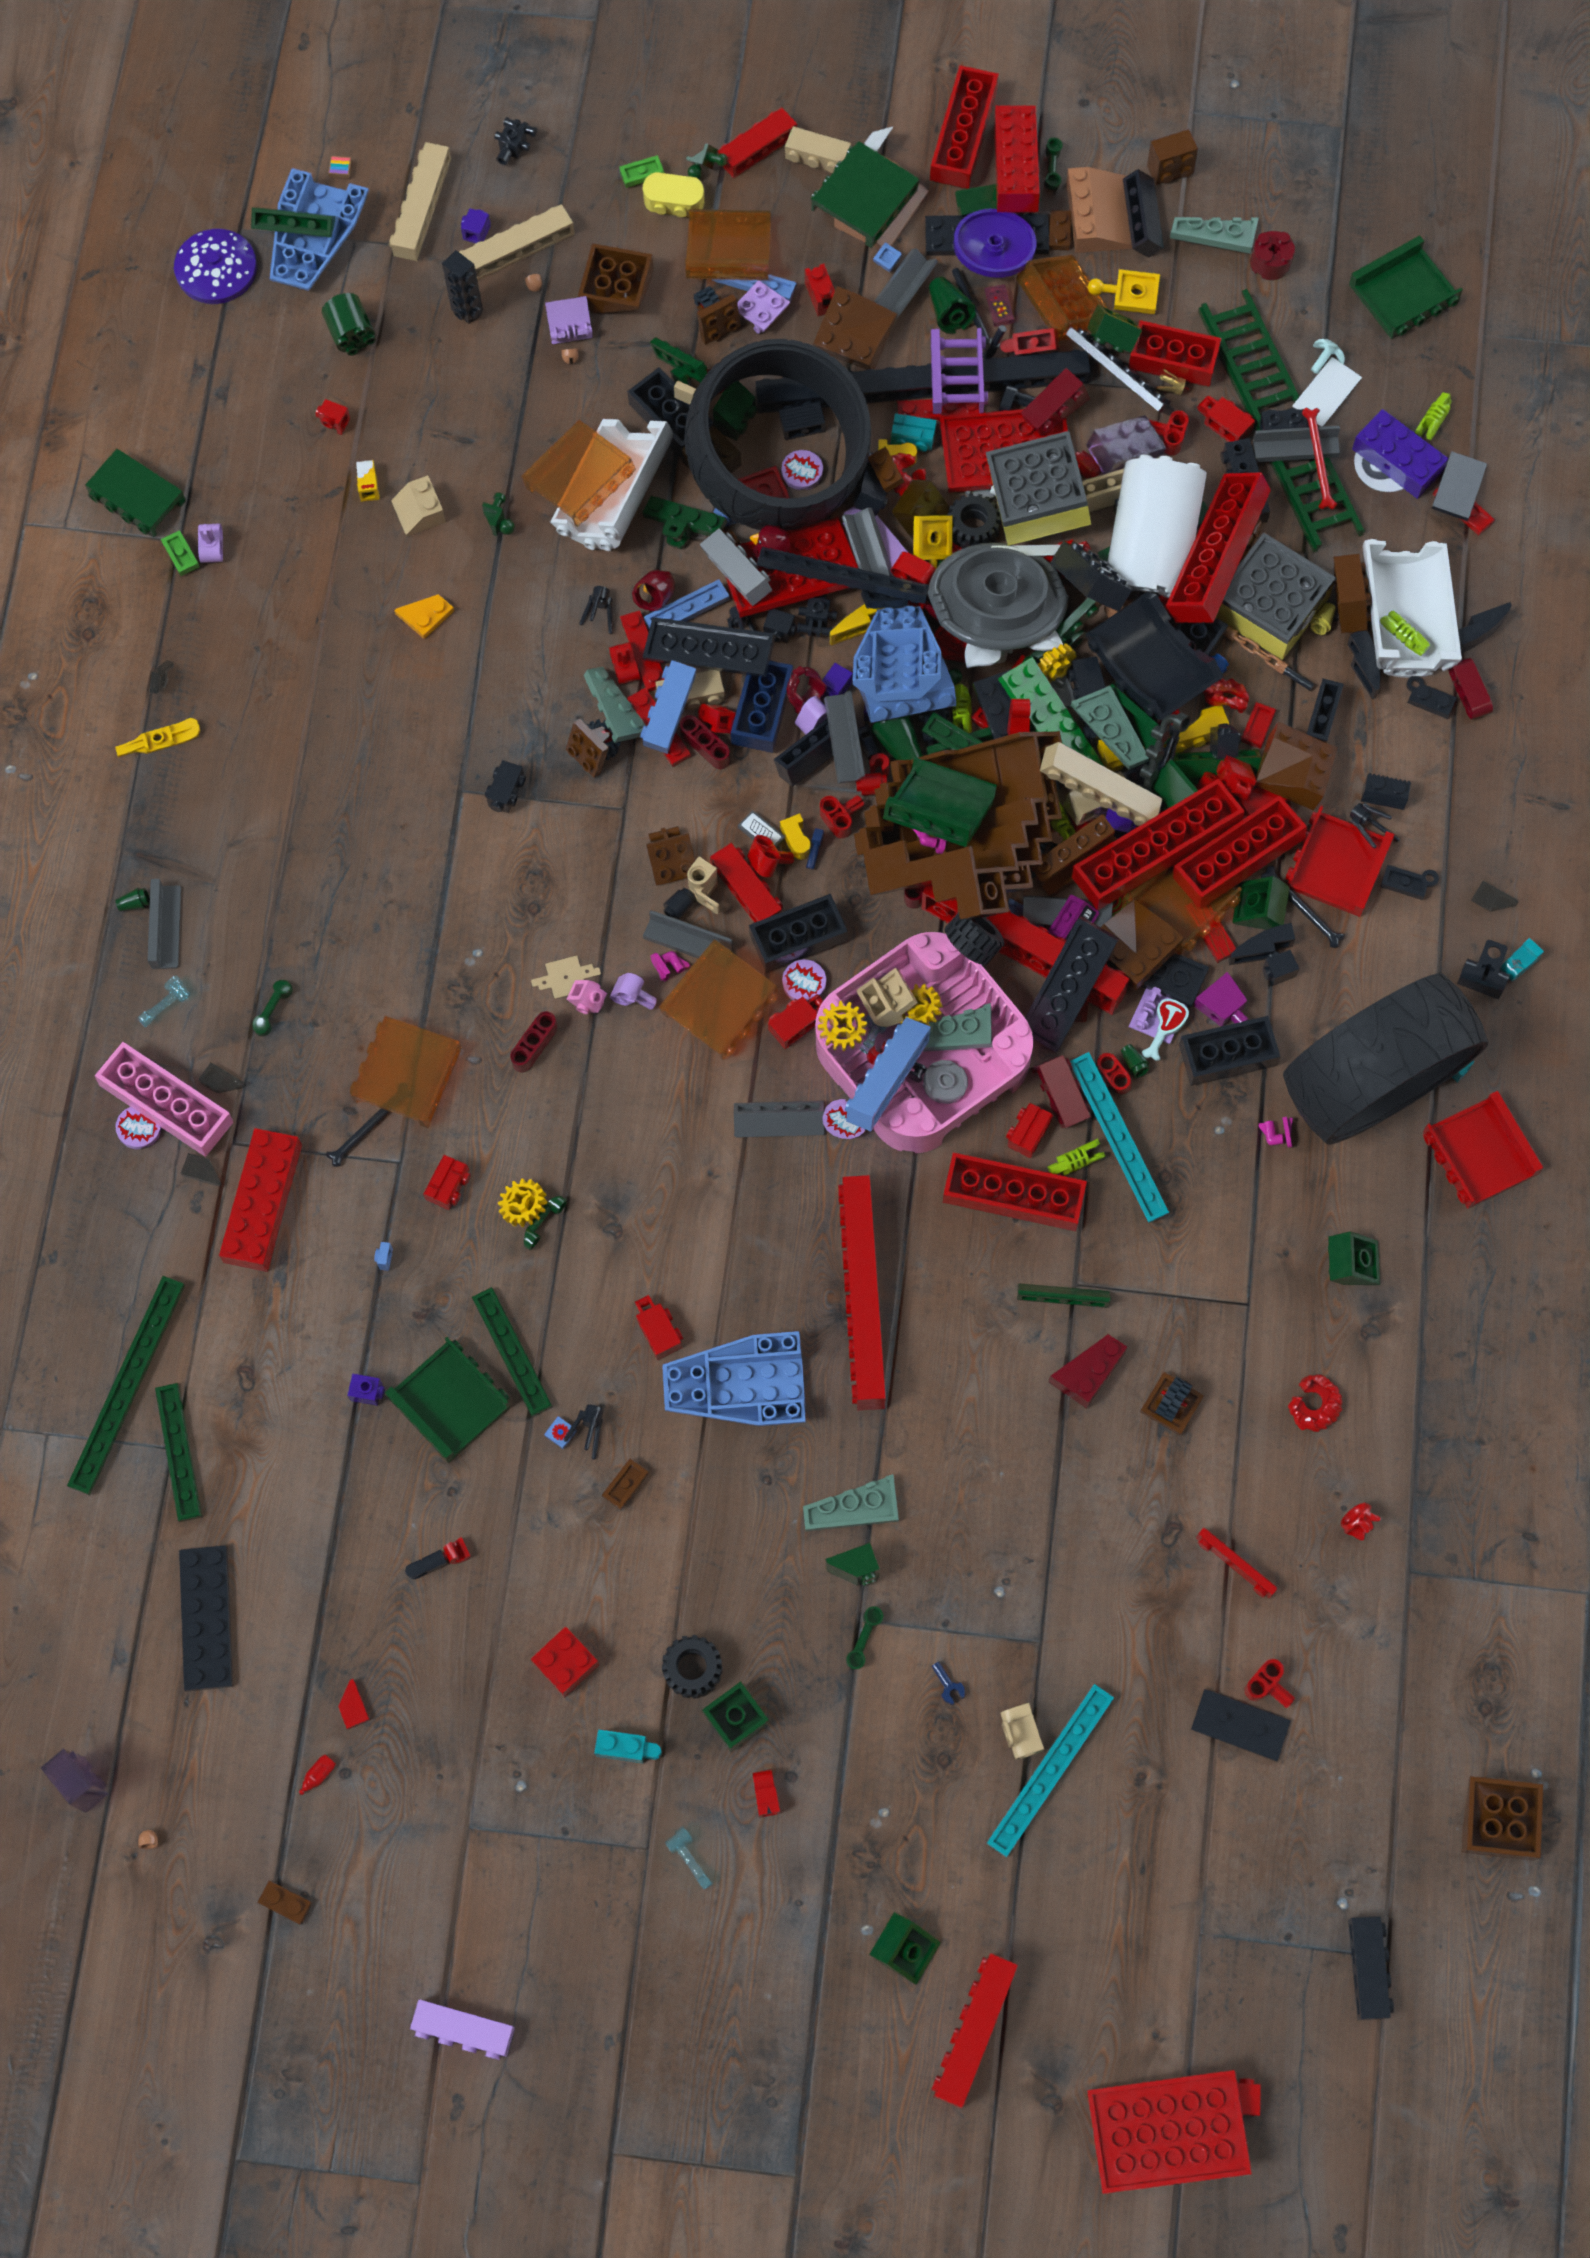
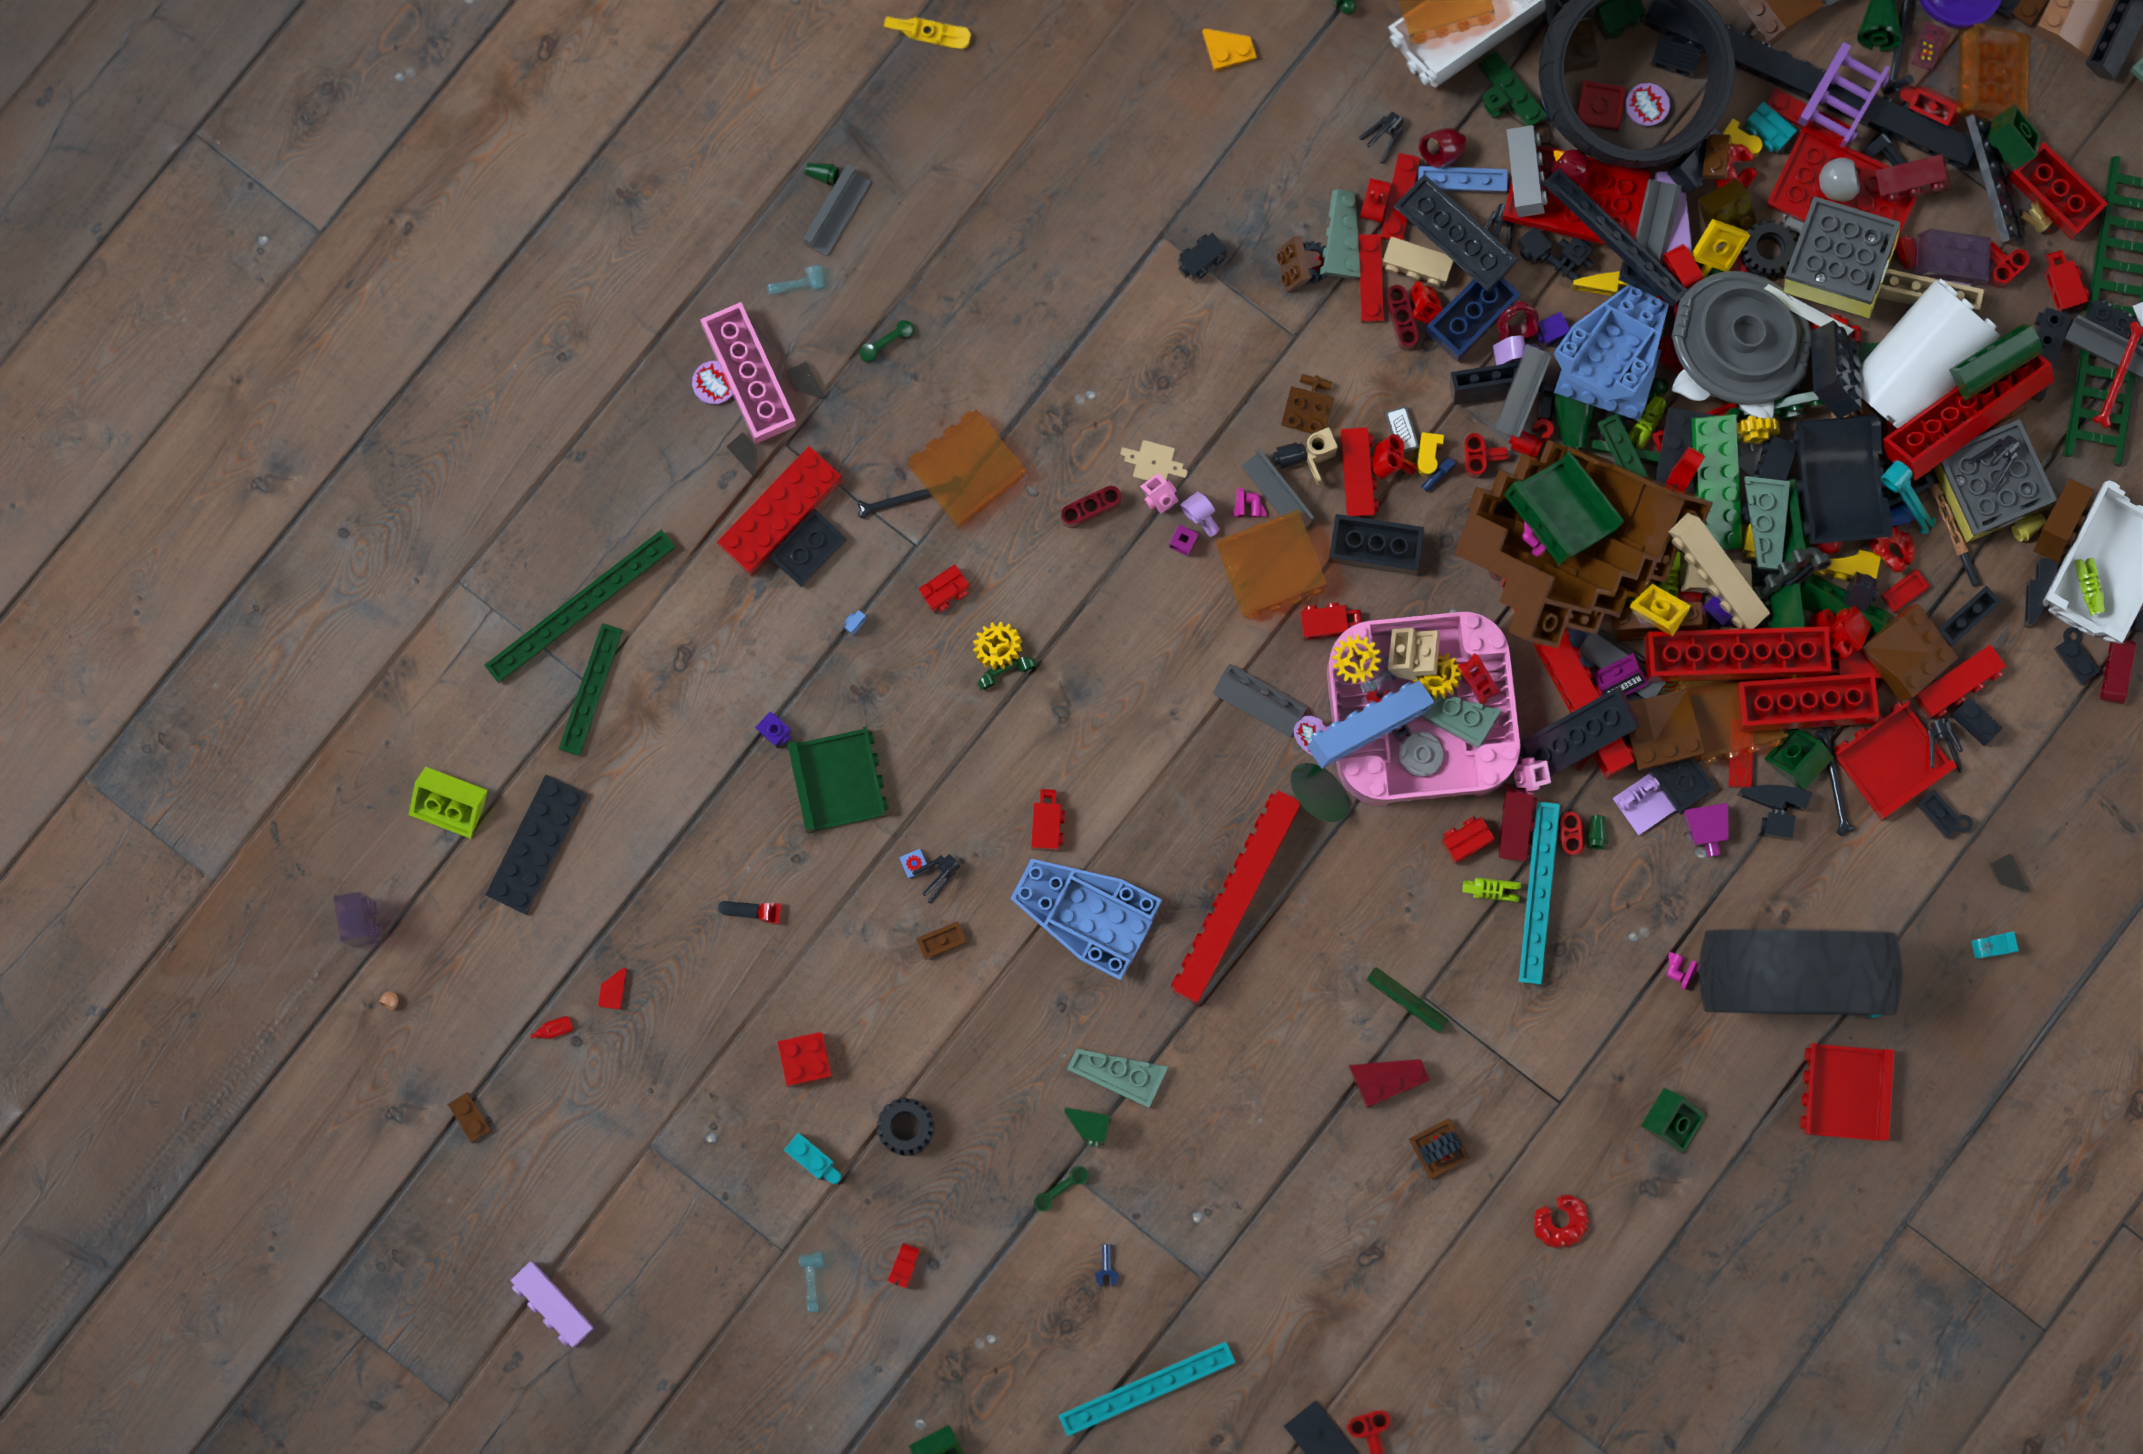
camera: 35 degrees right, 10 degrees up
(101, 1627) = (447, 802): none -> lime slope
(304, 1217) = (807, 548): none -> black plate
(512, 1352) = (914, 769): dark green tile -> none
(631, 1024) = (1181, 547): none -> magenta piece
(669, 706) = (1387, 269): medium blue brick -> none
(735, 1716) = (916, 1189): dark green brick -> none
(804, 979) = (1356, 589): tile -> none
(878, 1162) = (1319, 792): none -> dark green sticker
(956, 988) = (1478, 680): none -> red plate
(975, 938) = (1516, 653): black tyre -> none
(996, 433) = (1839, 180): none -> light grey helmet
(1014, 1191) = (1419, 887): red brick -> none
(1021, 1731) = (1141, 1343): tan piece -> none
(1046, 1045) = (1531, 774): none -> bright pink brick
(1073, 839) = (1660, 609): none -> yellow slope
(1124, 298) = (2048, 107): yellow plate -> none
(1171, 1017) = (1654, 814): light aqua piece -> none
(1199, 630) = (1898, 480): none -> teal piece
(1209, 1542) = (1416, 1346): red plate -> none
(1217, 492) = (1996, 360): none -> dark green brick
(1229, 1050) = (1684, 874): black brick -> none
(1269, 559) = (2006, 449): none -> black plant
(1350, 769) = (1959, 682): none -> red brick
(1359, 1521) = (1532, 1342): red piece -> none
(1485, 974) = (1955, 939): black piece -> none

